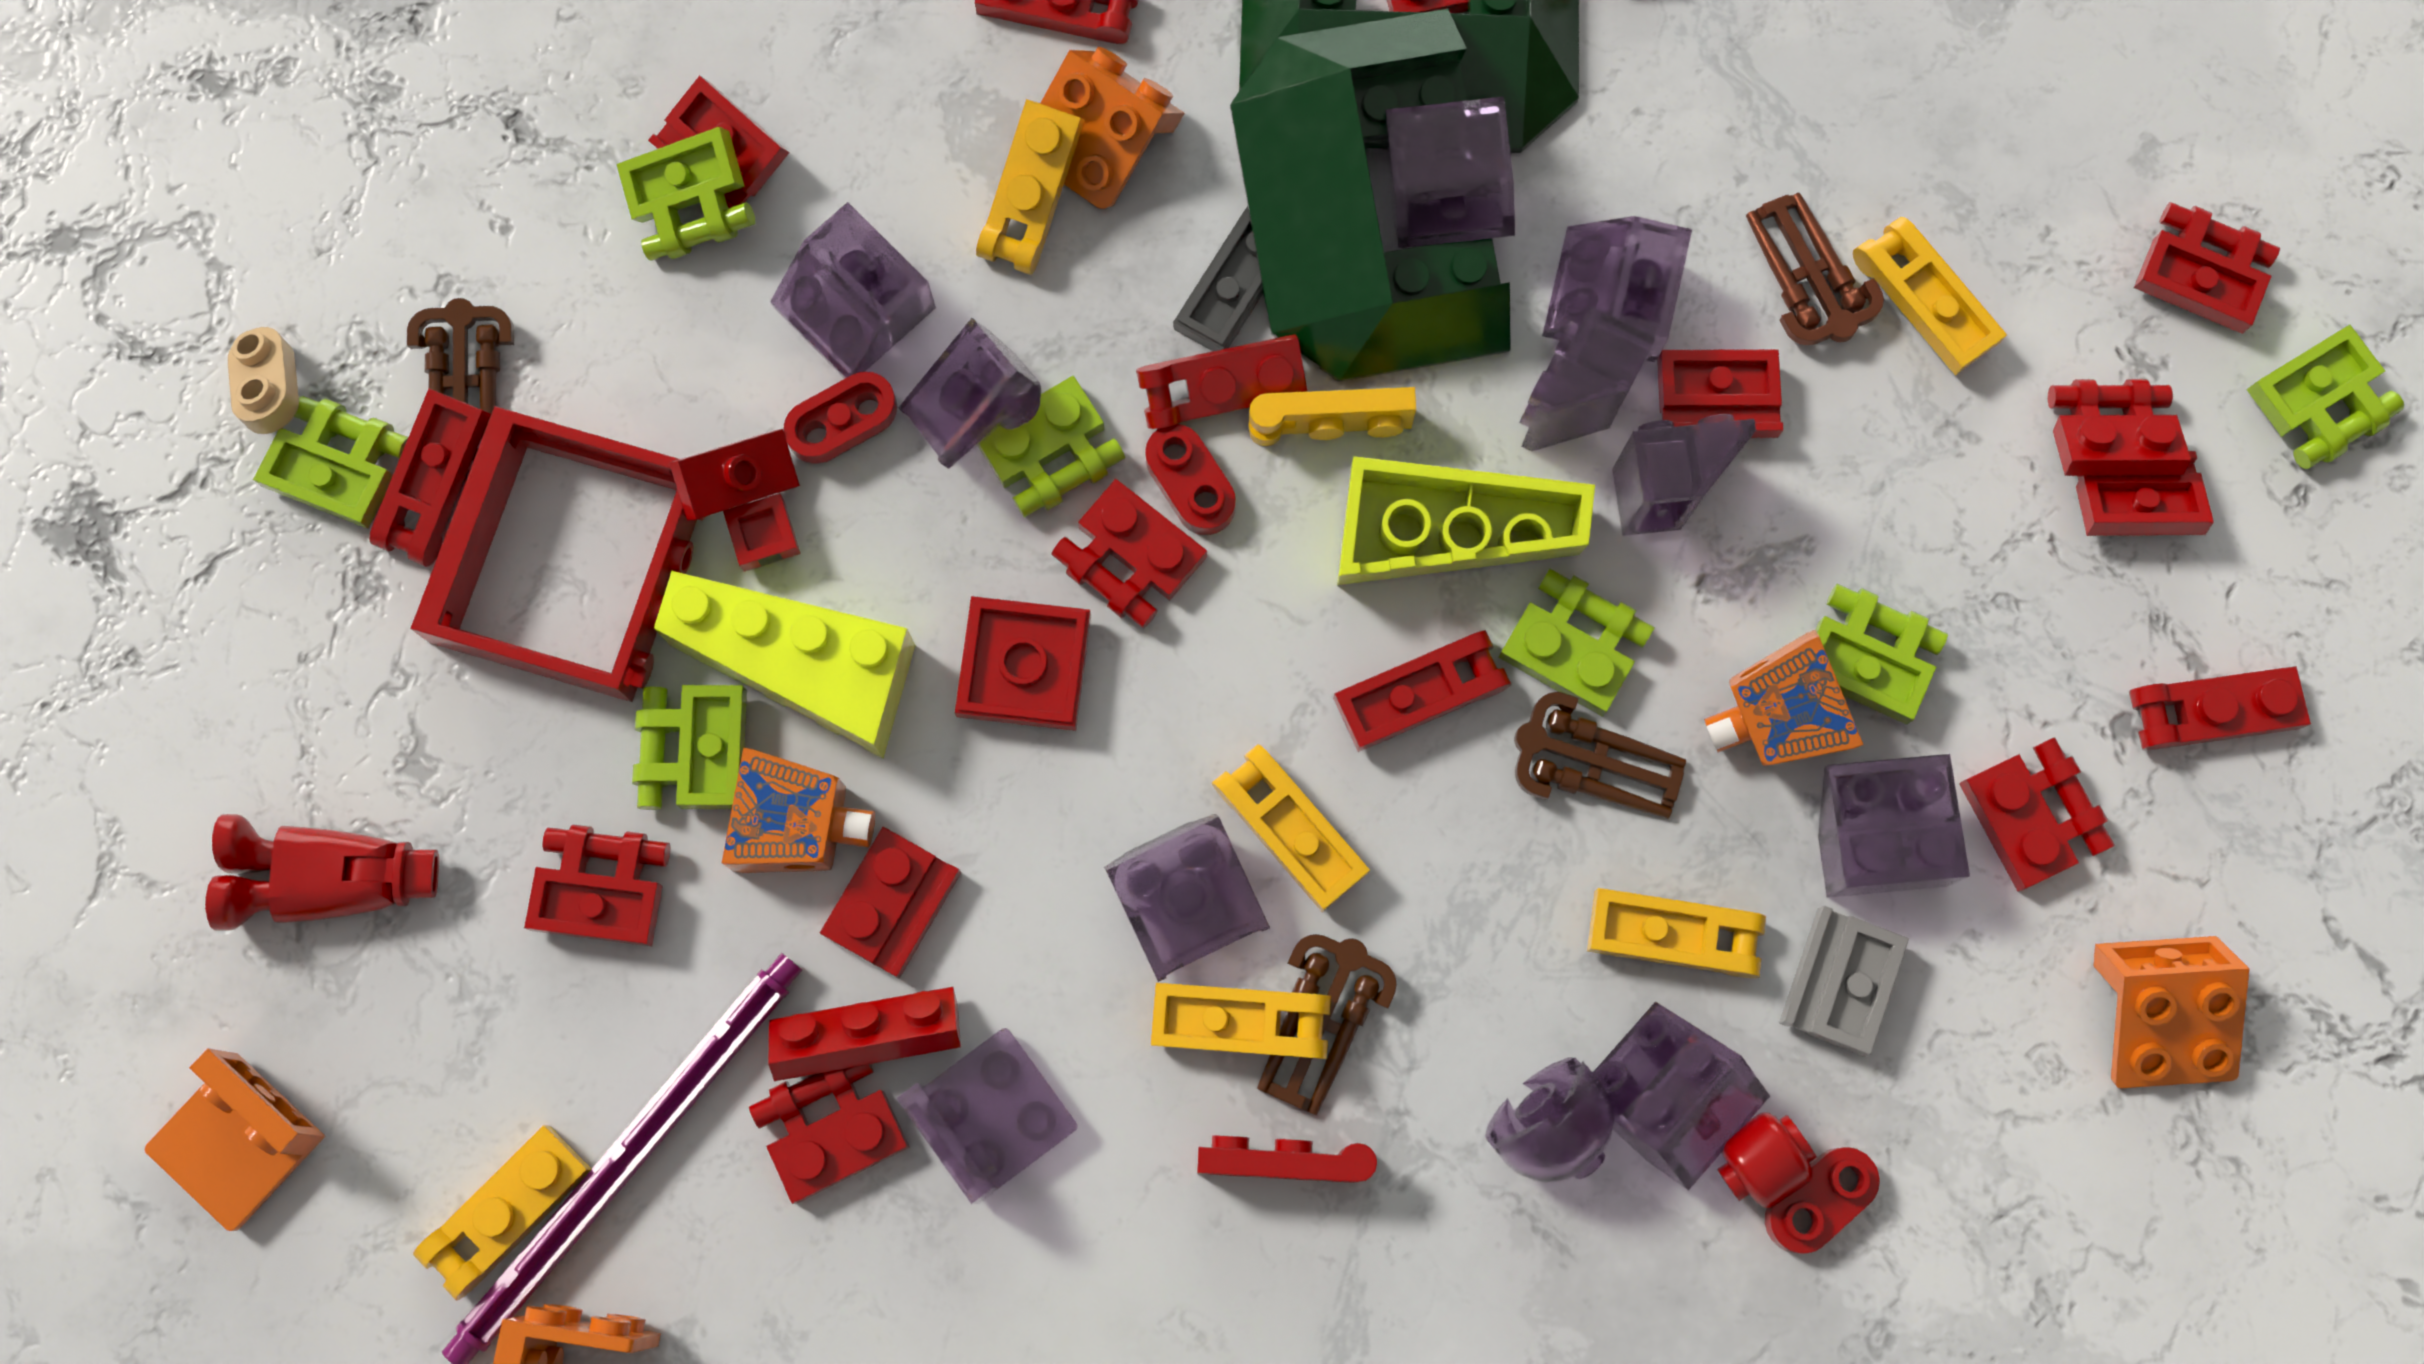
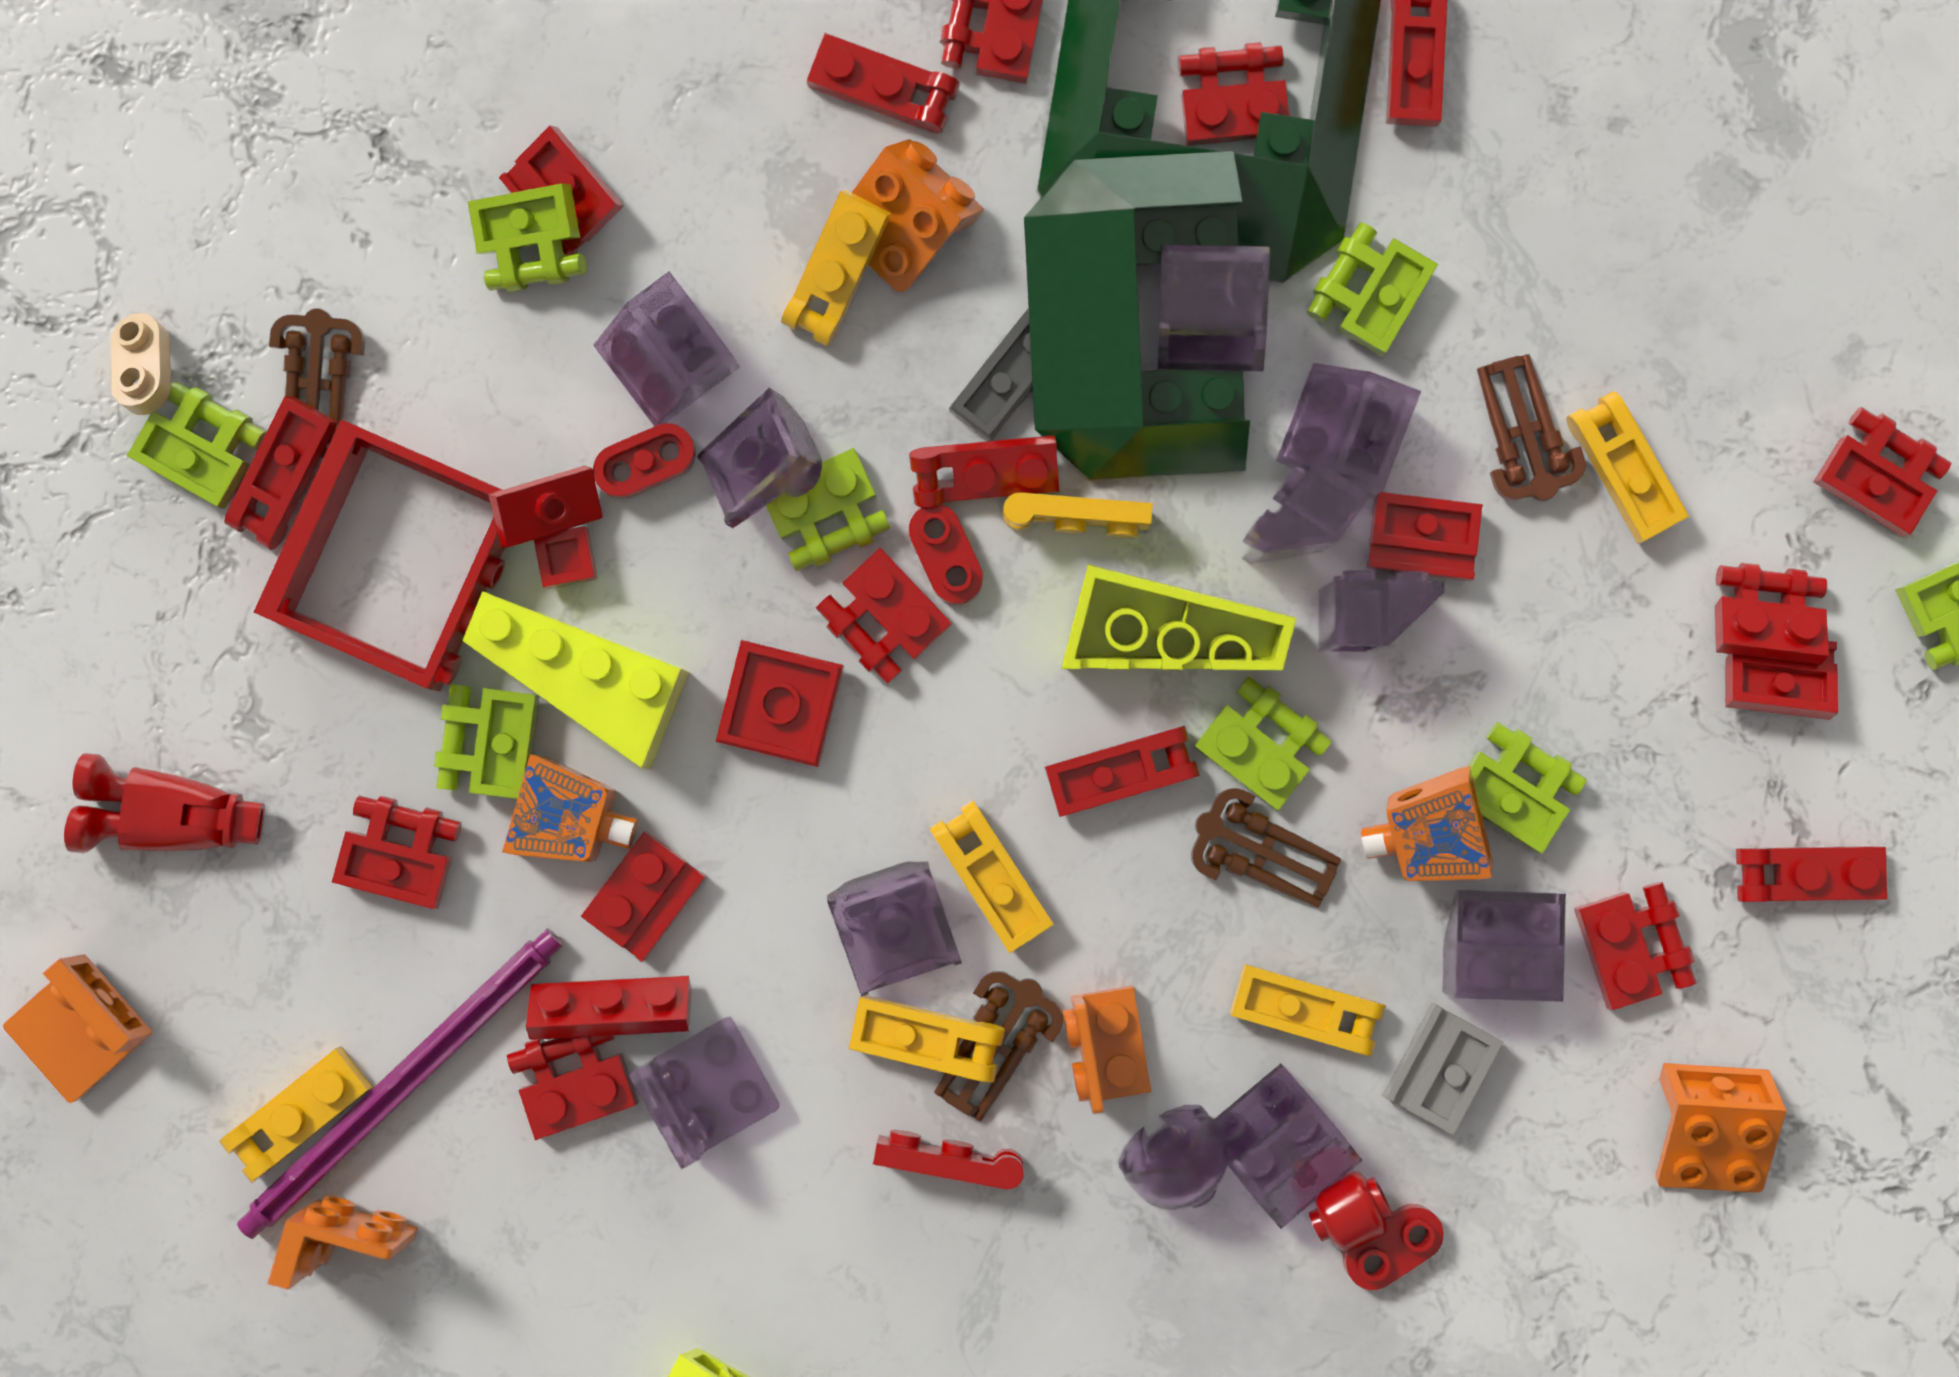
camera: 10 degrees right, 10 degrees up
(1453, 1003) = (1110, 1046): none -> orange bracket
(1635, 150) = (1387, 295): none -> lime plate

